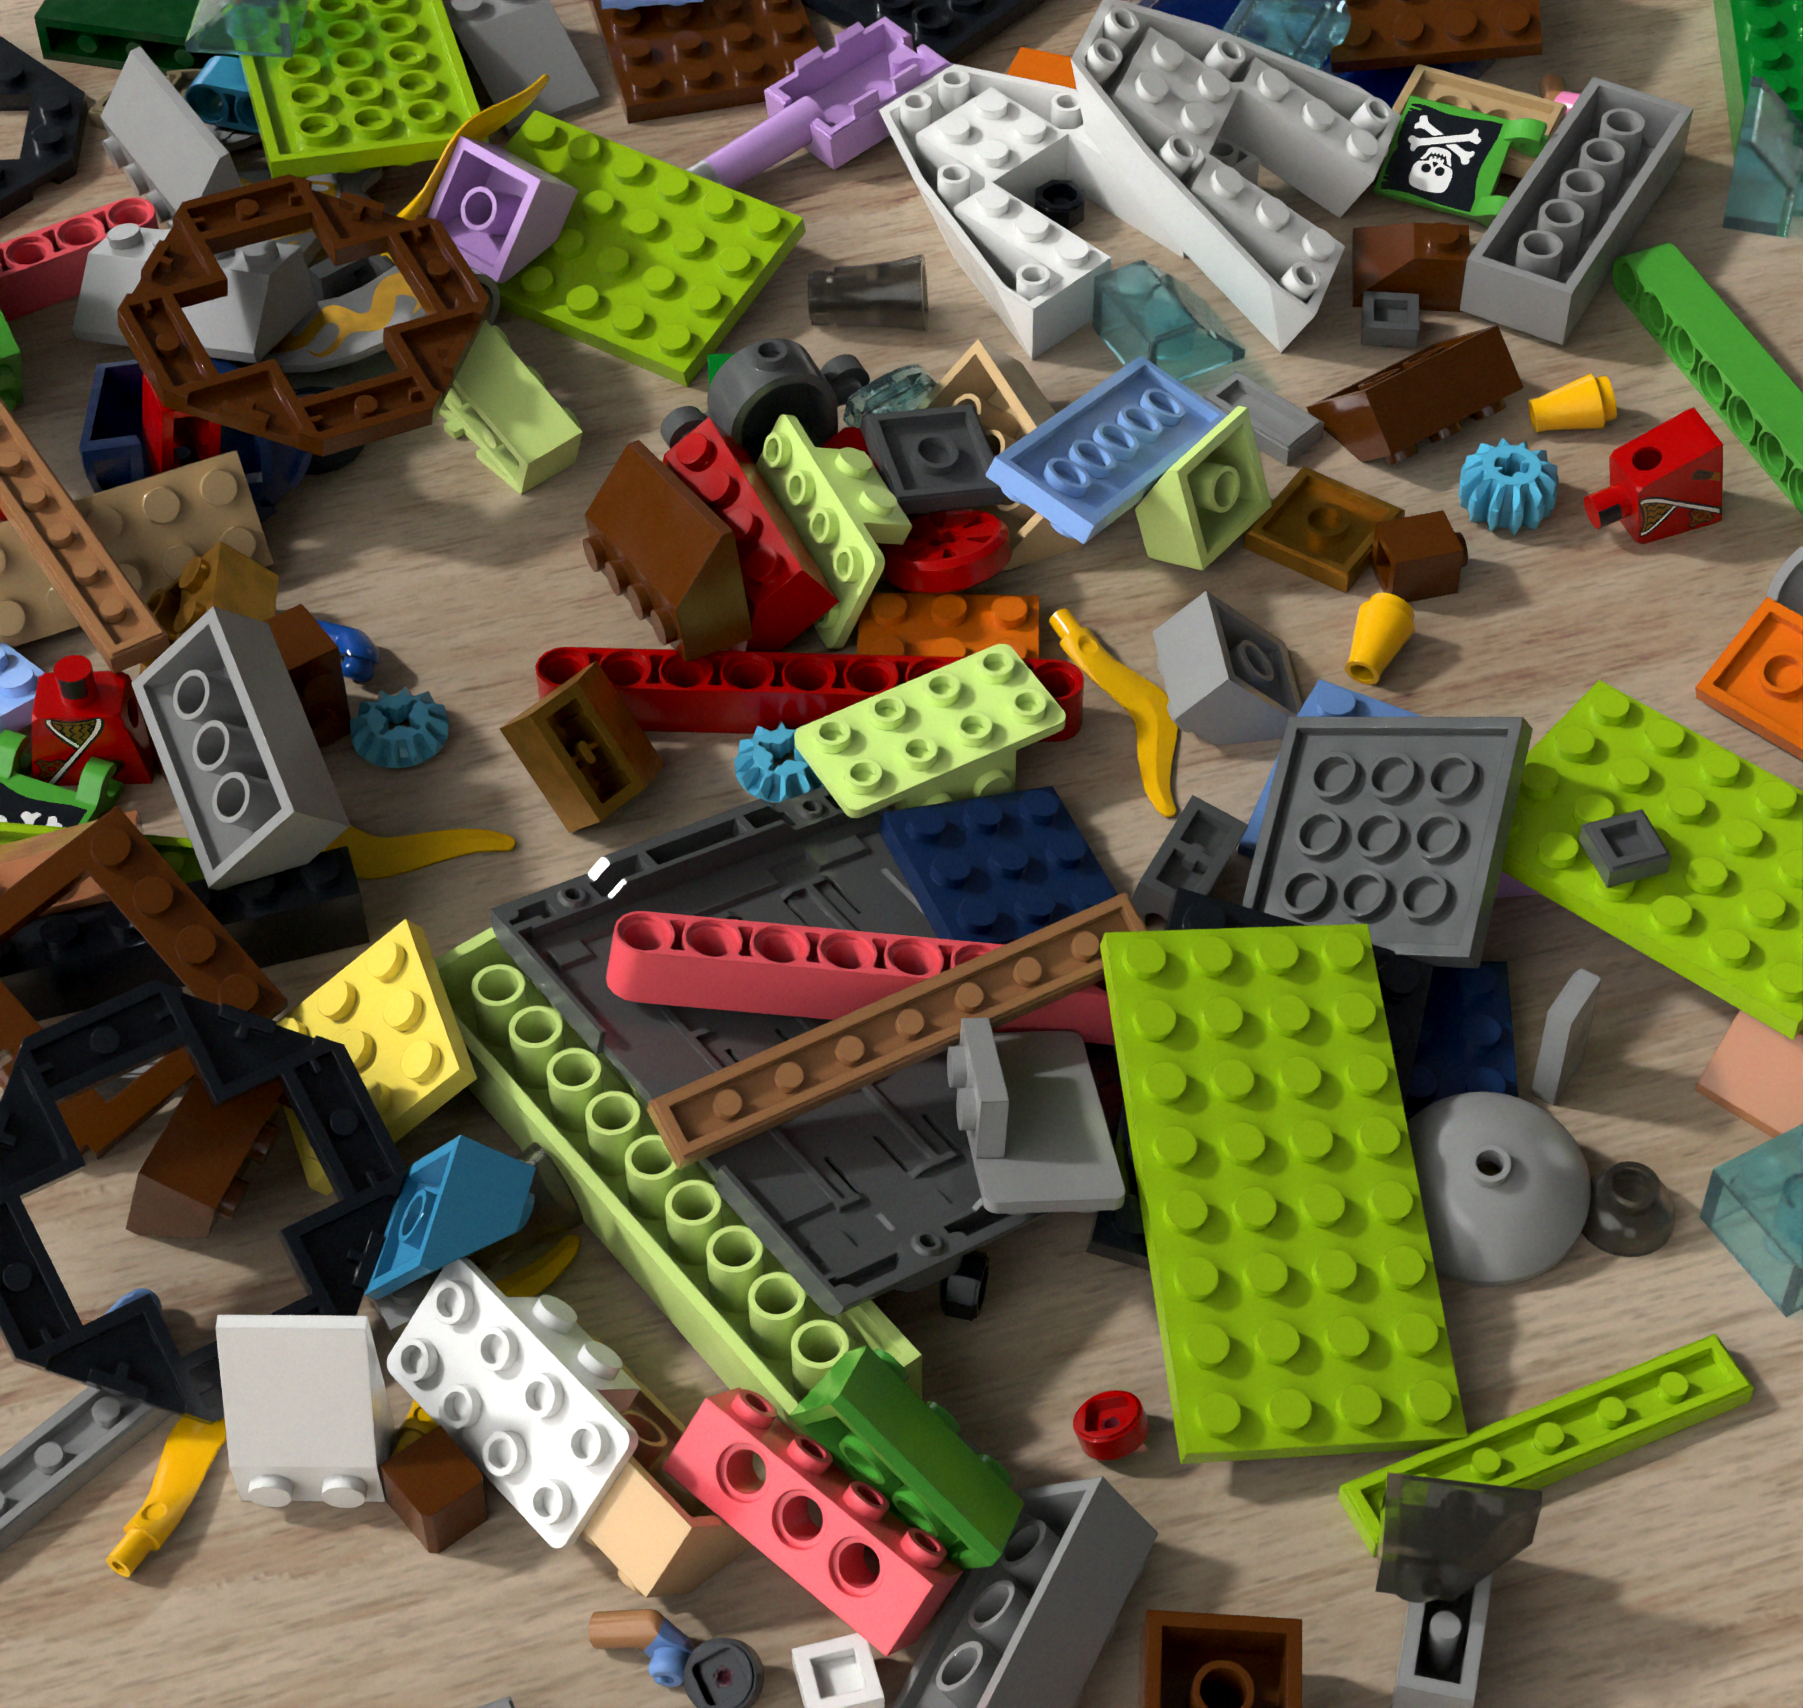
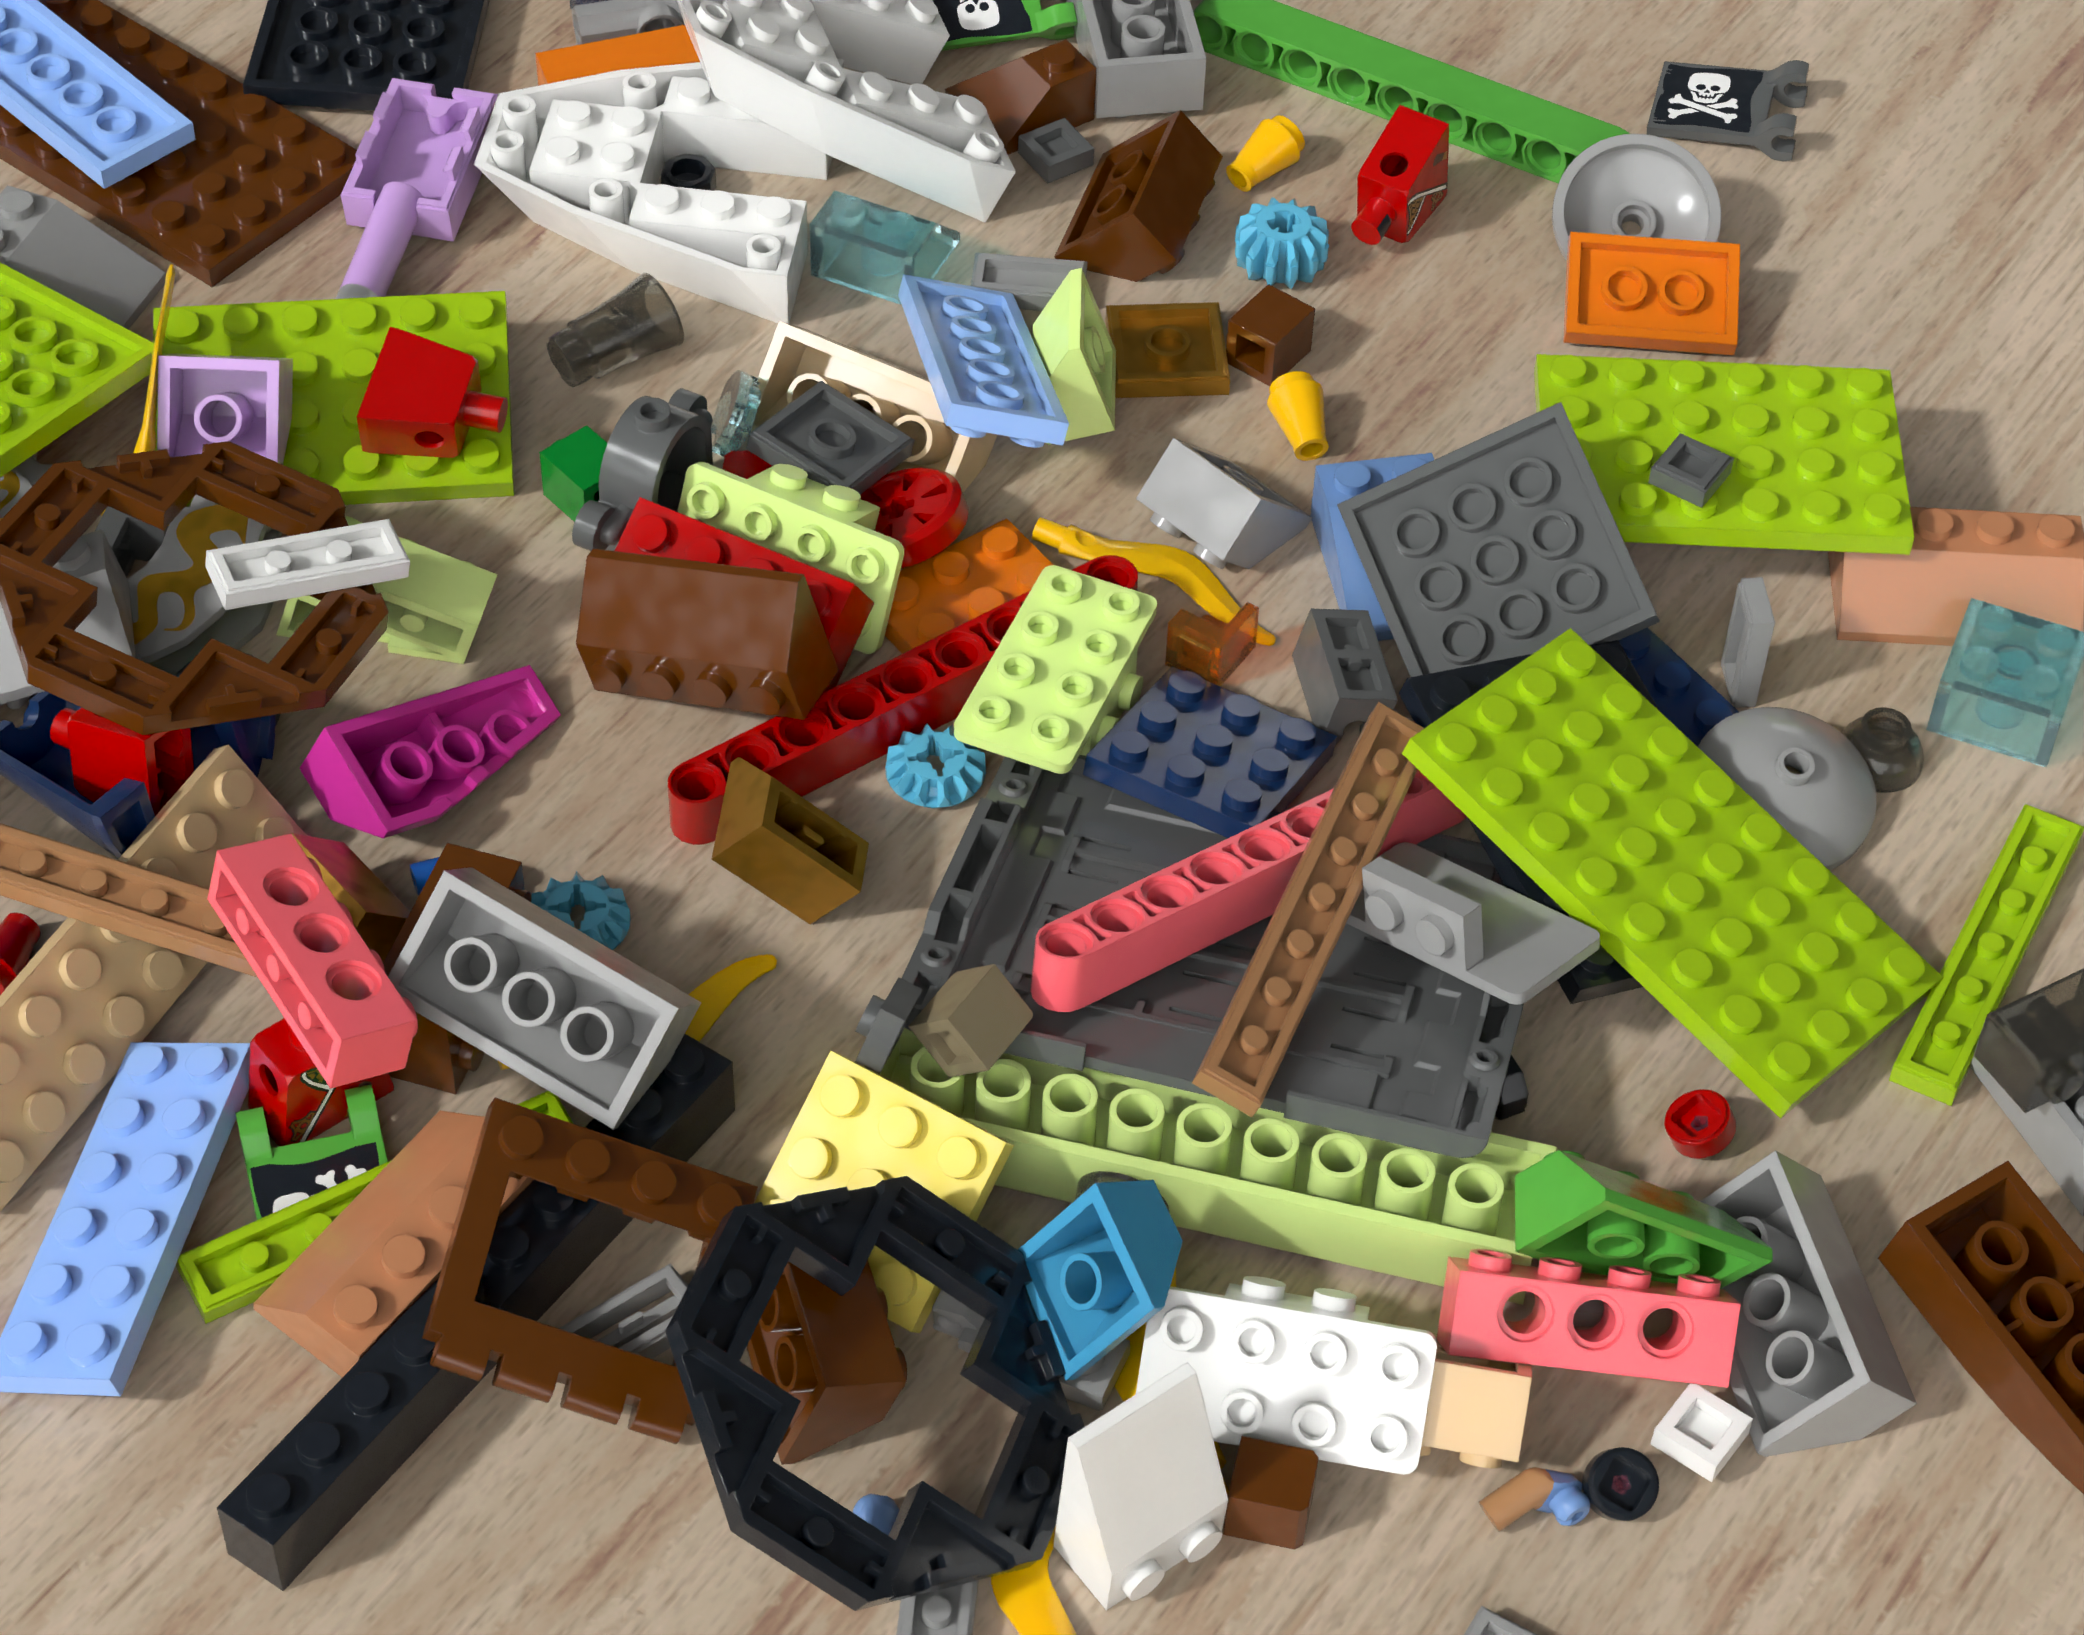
camera: 40 degrees left, 0 degrees up
(94, 630) = (312, 960): none -> coral brick
(399, 540) = (425, 754): none -> dark pink wedge
(400, 339) = (307, 564): none -> white tile
(465, 923) = (884, 1023): none -> dark grey plate
(531, 958) = (971, 1020): none -> dark tan panel
(650, 269) = (424, 399): none -> red torso
(1106, 792) = (1211, 645): none -> clear orange panel

